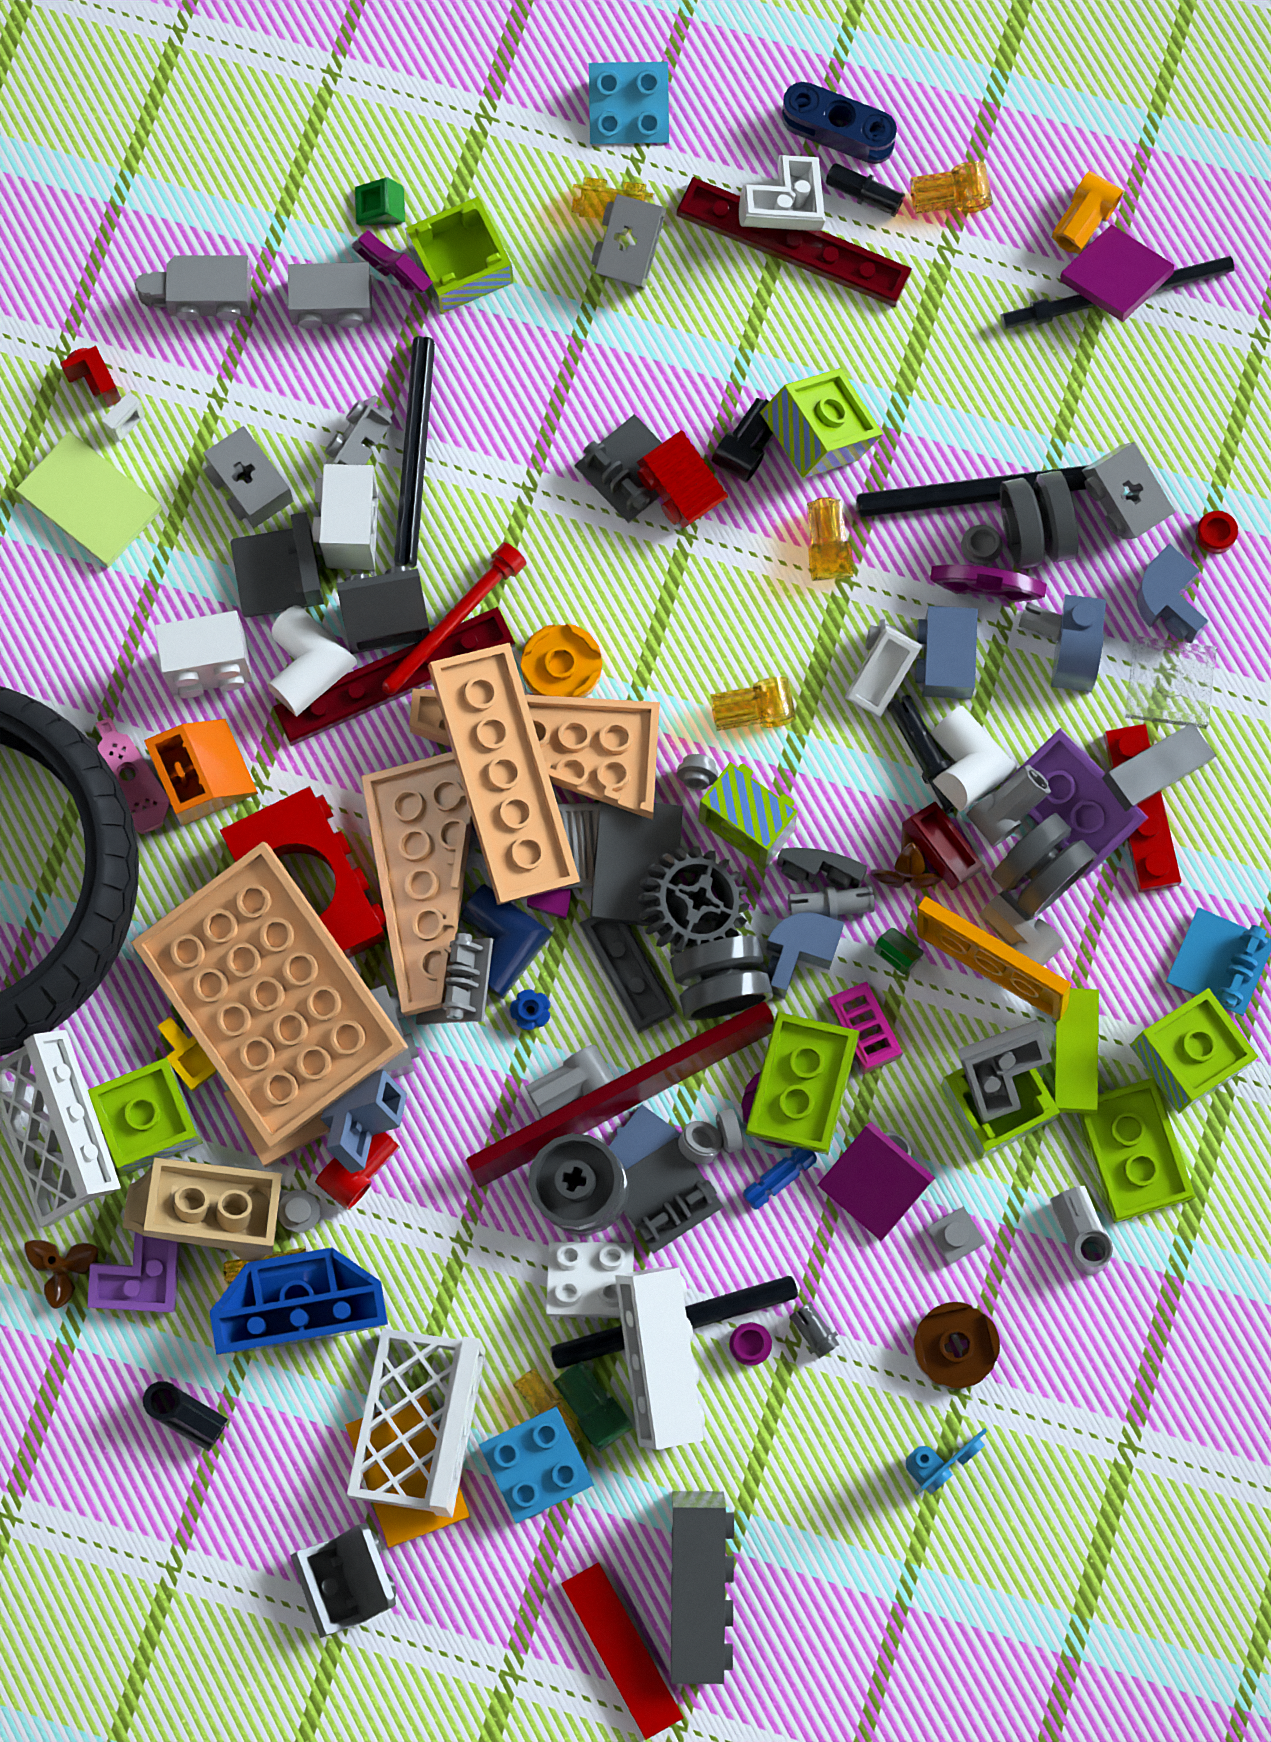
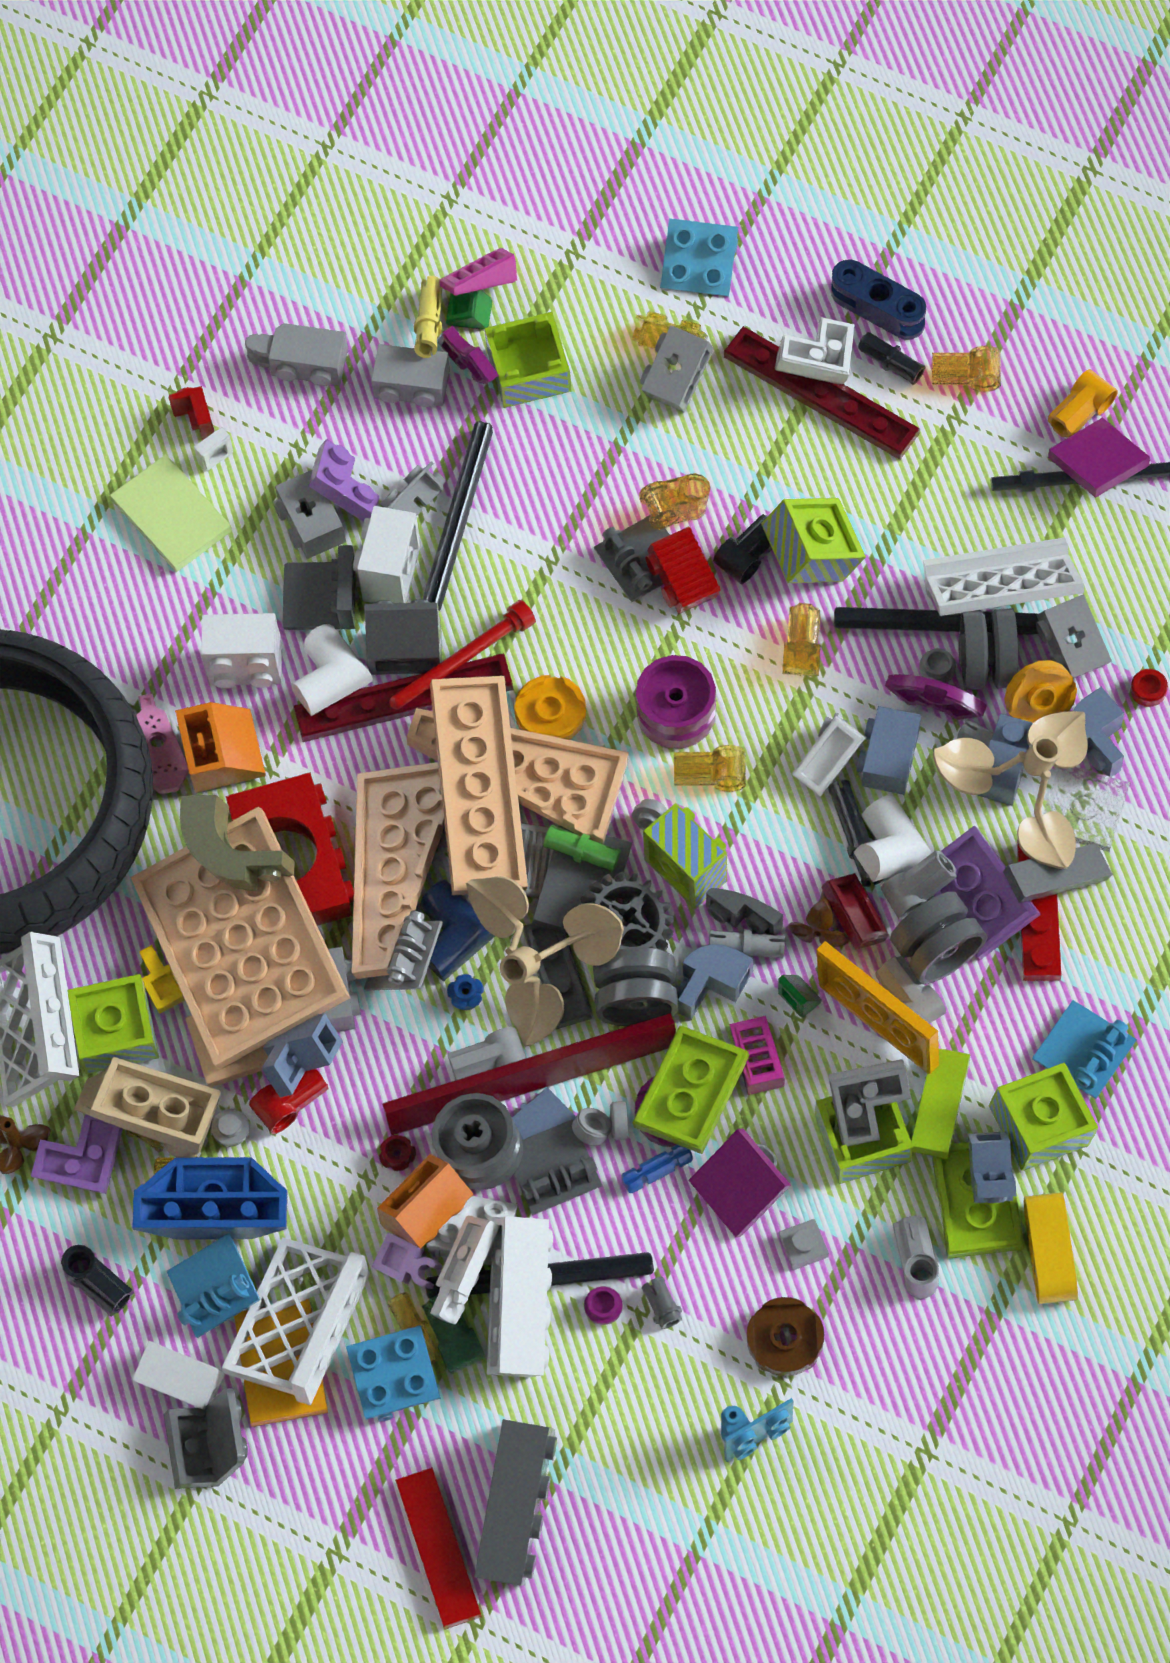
camera: 15 degrees right, 10 degrees down
(209, 886) = (205, 834): none -> olive arch
(269, 438) = (333, 480): none -> medium lavender plate
(298, 1507) = (178, 1375): none -> white hinge
(316, 1399) = (212, 1286): none -> dark azure hinge
(339, 232) = (427, 324): none -> light yellow pin
(390, 159) = (486, 272): none -> dark pink slope
(493, 1197) = (393, 1144): none -> dark red plate
(520, 1334) = (404, 1261): none -> lavender plate
(536, 1268) = (424, 1202): none -> orange slope
(594, 1336) = (463, 1267): none -> white hinge
(609, 1017) = (532, 1006): none -> tan plant
(631, 825) = (582, 848): none -> bright green pin
(652, 402) = (671, 500): none -> clear yellow piece
(698, 612) = (676, 701): none -> magenta wheel
(1042, 417) = (1003, 575): none -> white fence
(1104, 562) = (1040, 691): none -> light orange tile
(1139, 621) = (1053, 741): none -> tan plant
(1149, 1120) = (991, 1167): none -> sand blue brick
(1225, 1196) = (1050, 1248): none -> yellow beam

